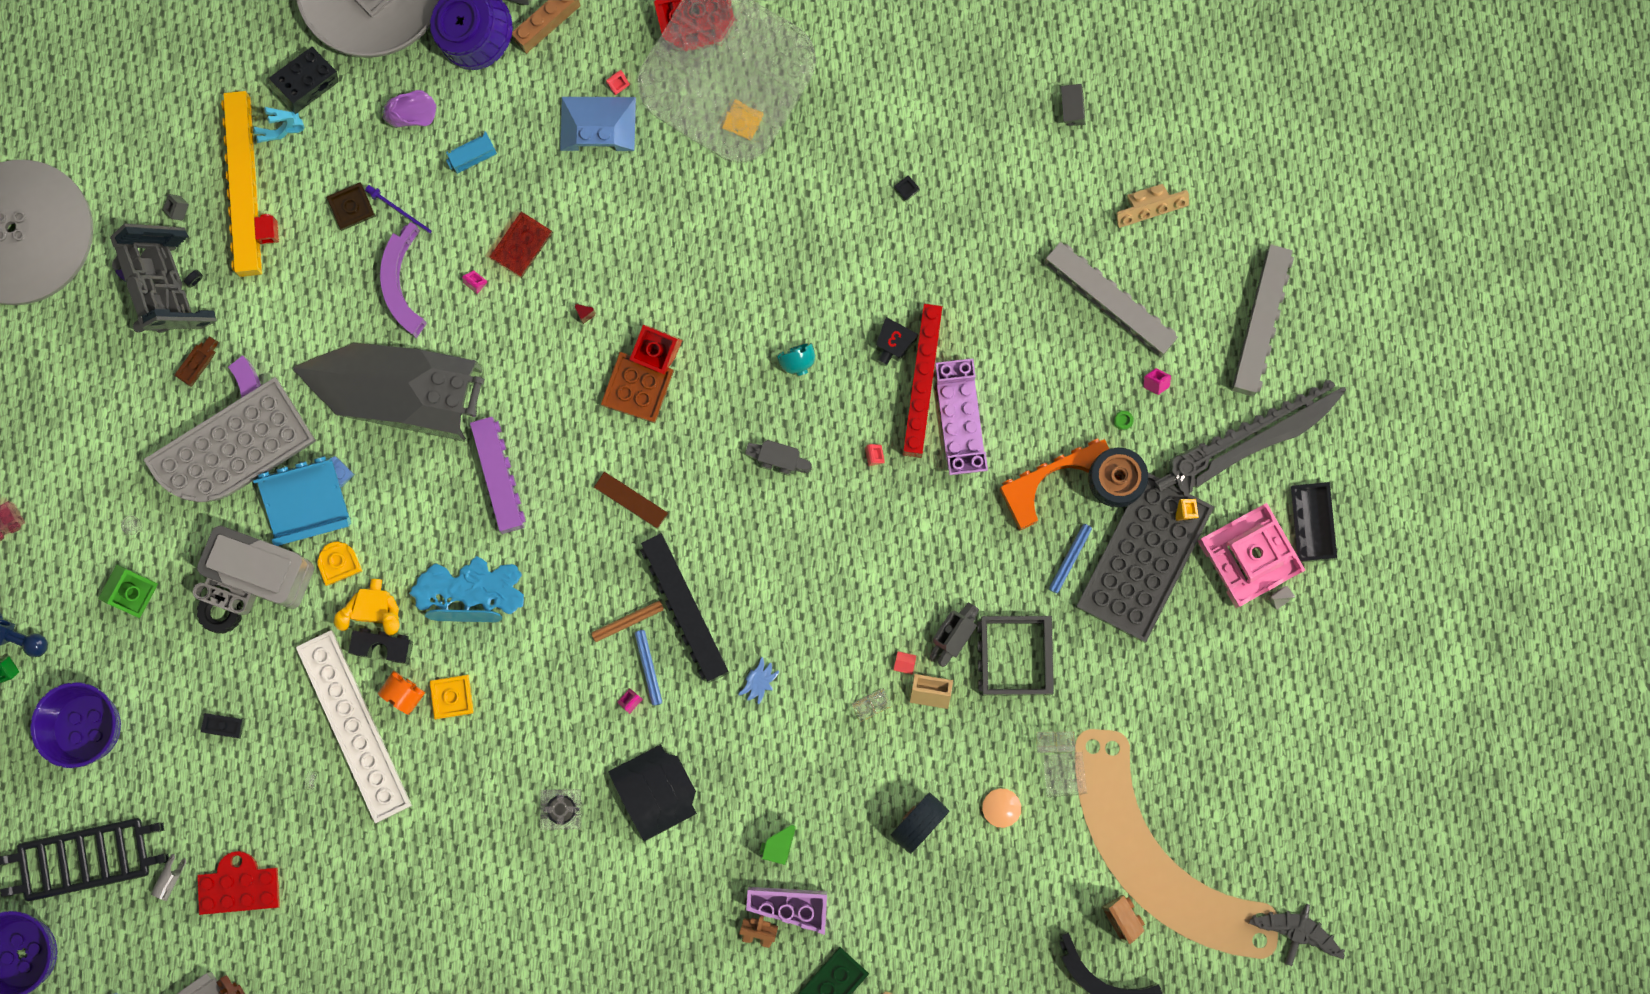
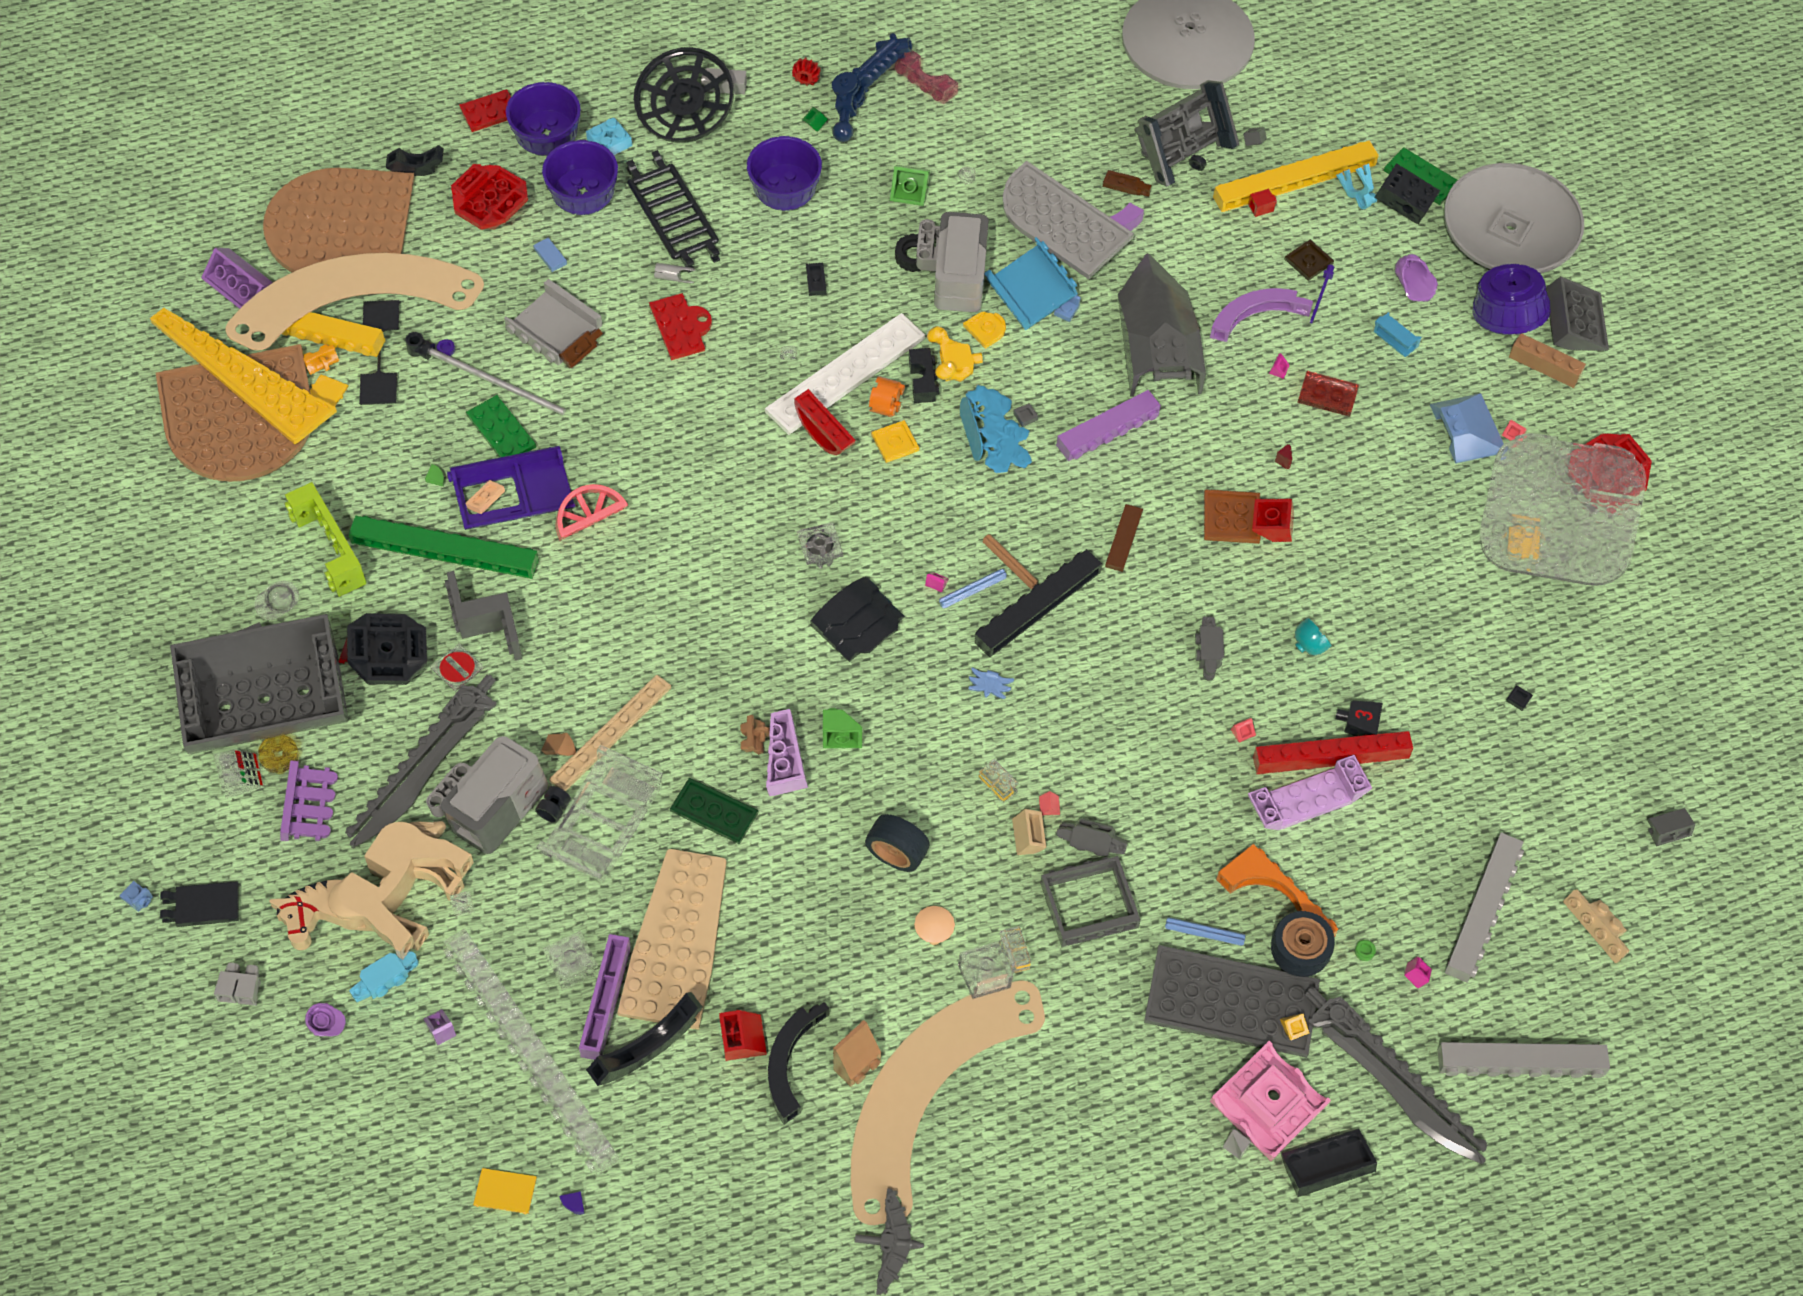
camera: 70 degrees right, 20 degrees down
(276, 54) = (1425, 171): none -> green plate
(420, 768) = (822, 424): none -> red window
(459, 554) = (1025, 414): none -> dark grey plate

